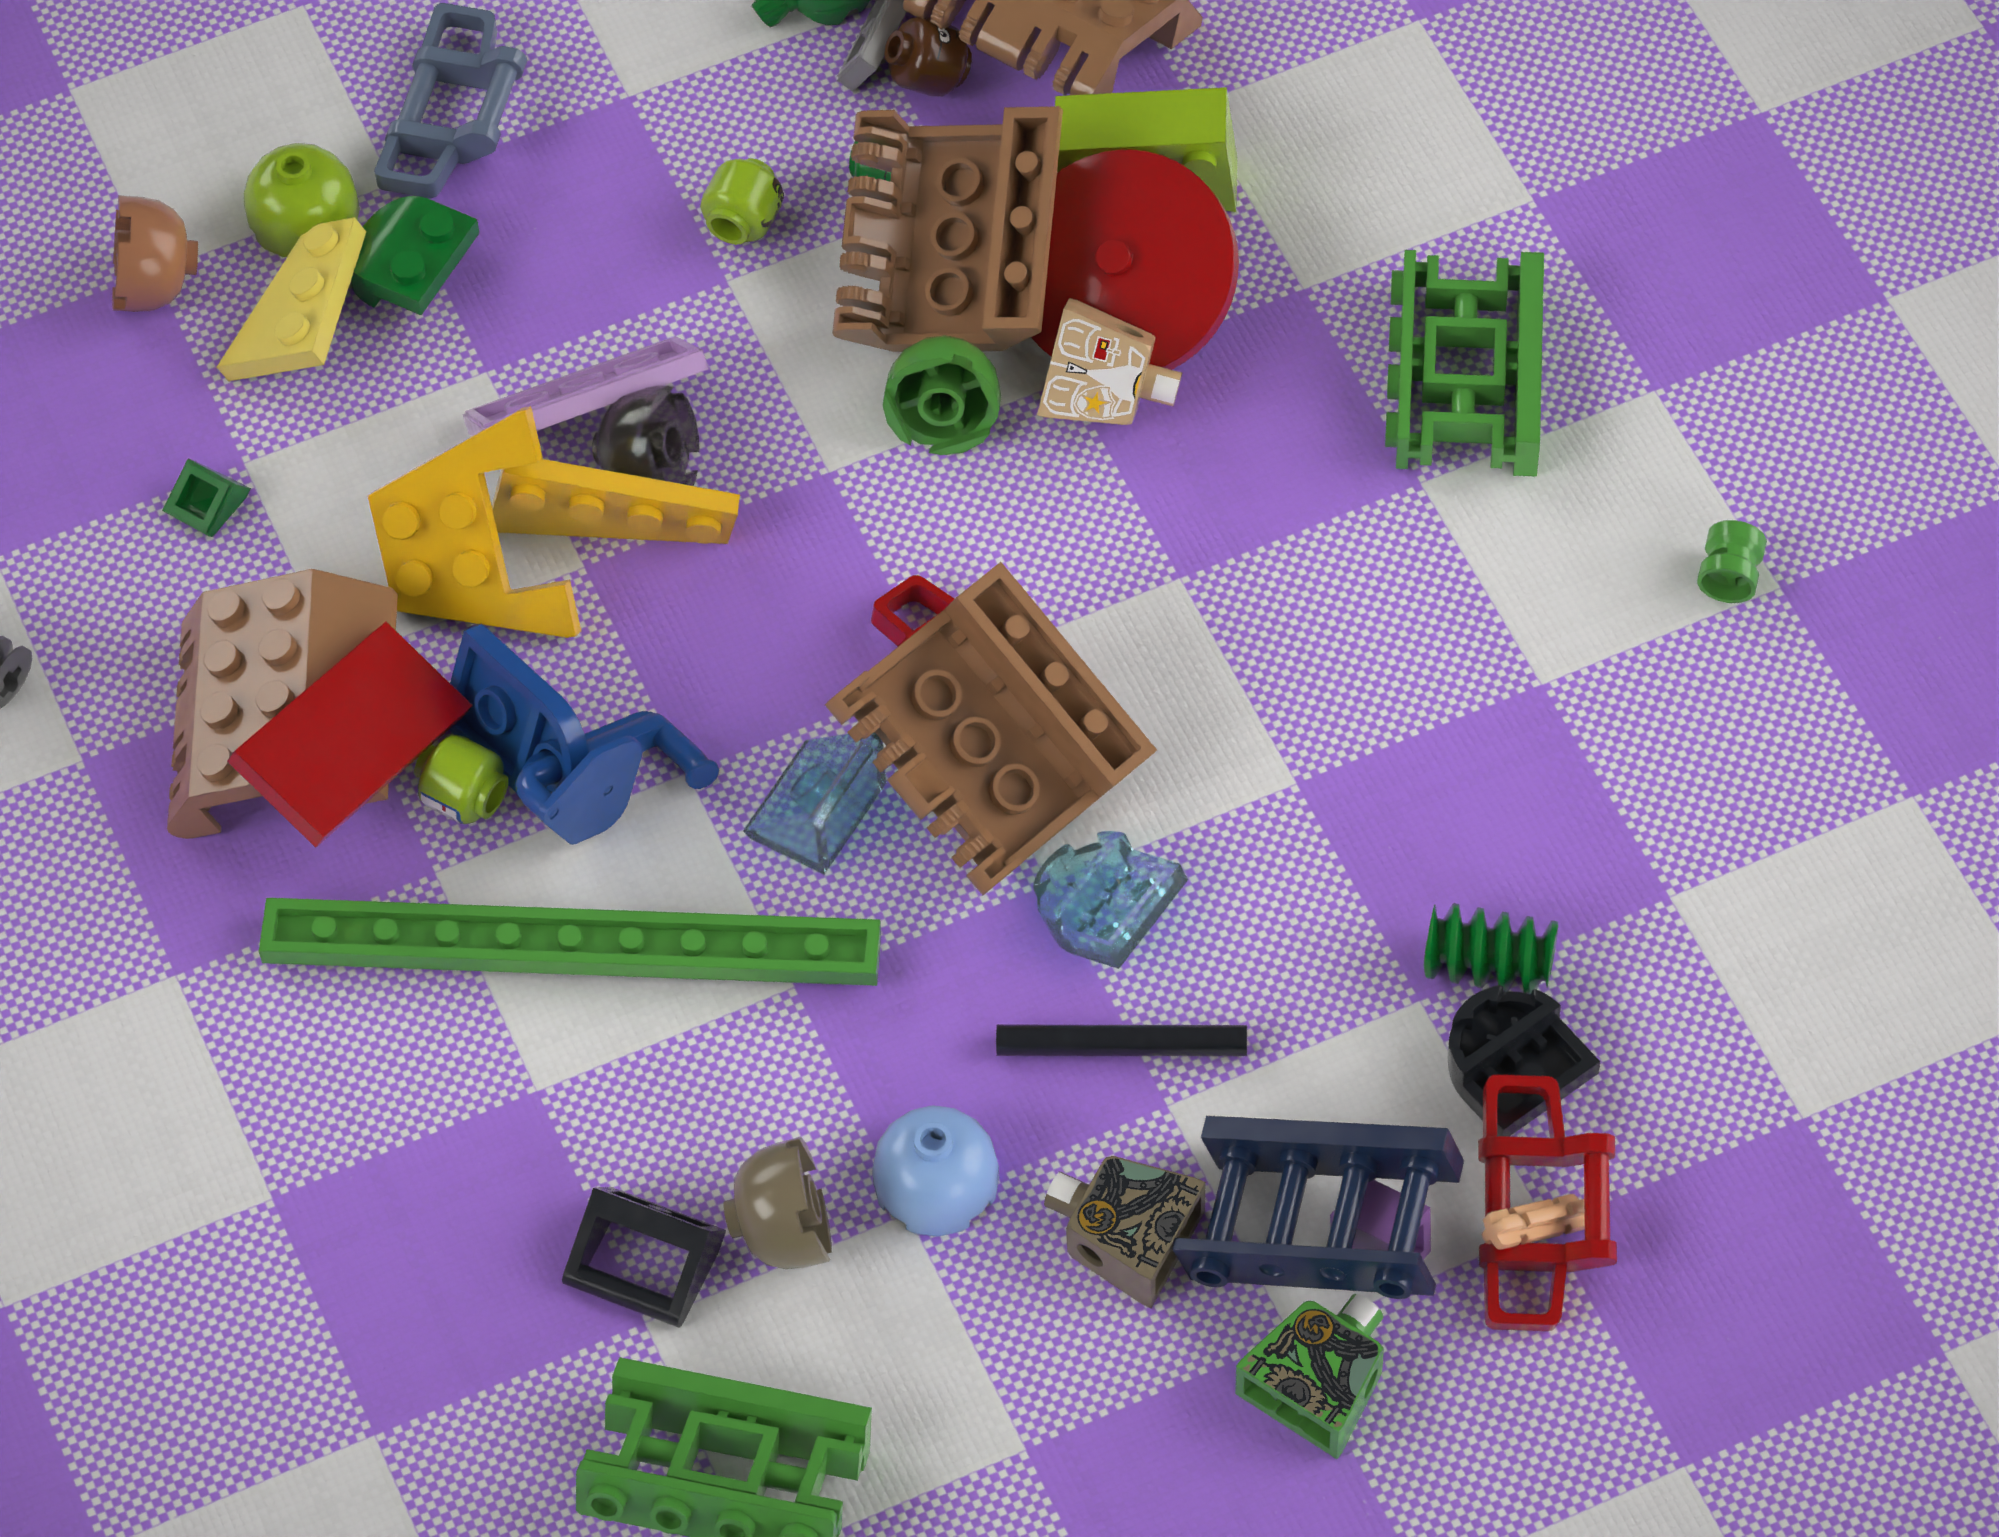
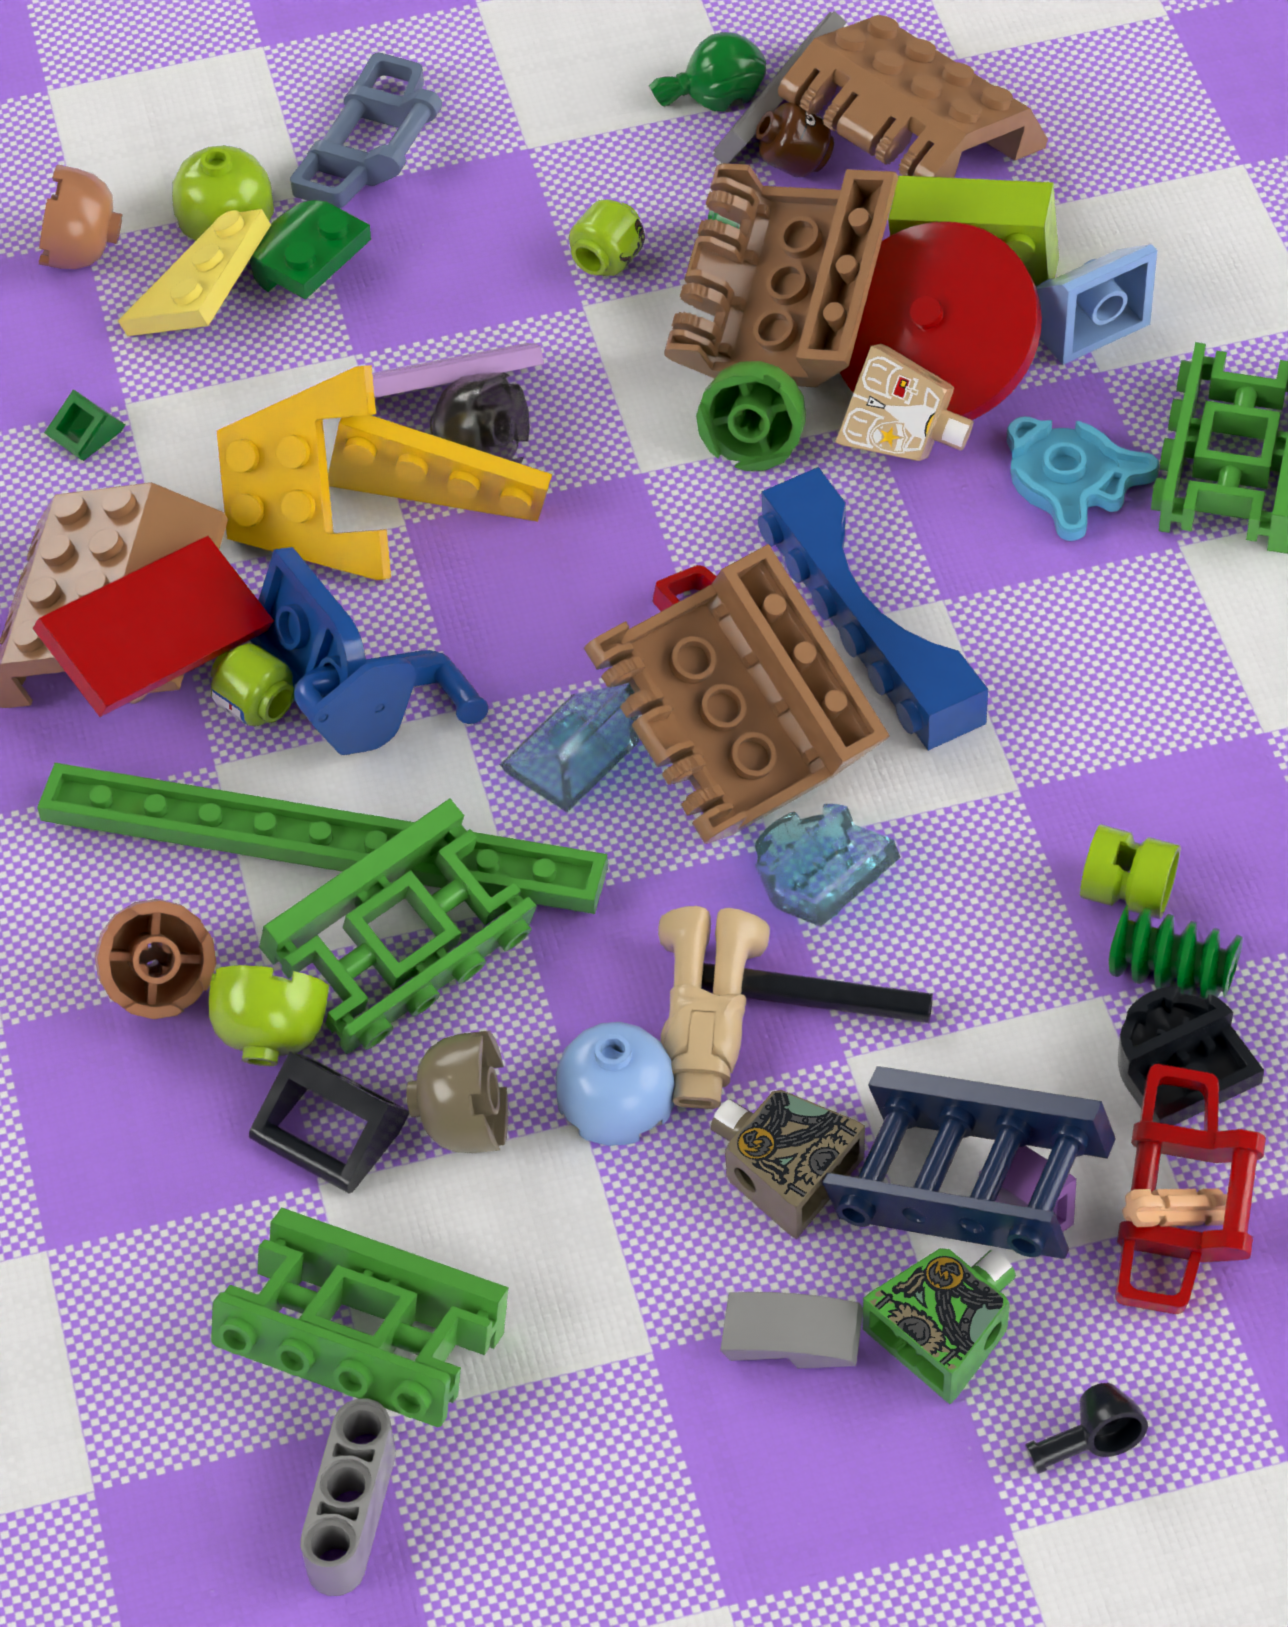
camera: 10 degrees right, 5 degrees down
(427, 1105) = (181, 951): none -> nougat cylinder
(556, 1147) = (266, 1012): none -> lime cylinder
(644, 1001) = (372, 889): none -> bright green fence
(1014, 1096) = (702, 1026): none -> tan piece
(1166, 1404) = (792, 1326): none -> light grey slope
(1181, 678) = (927, 683): none -> blue arch
(1291, 211) = (1098, 302): none -> light blue slope
(1294, 411) = (1073, 470): none -> medium azure tile
(1452, 863) = (1150, 865): none -> lime wheel
(1501, 1459) = (1108, 1428): none -> black bar

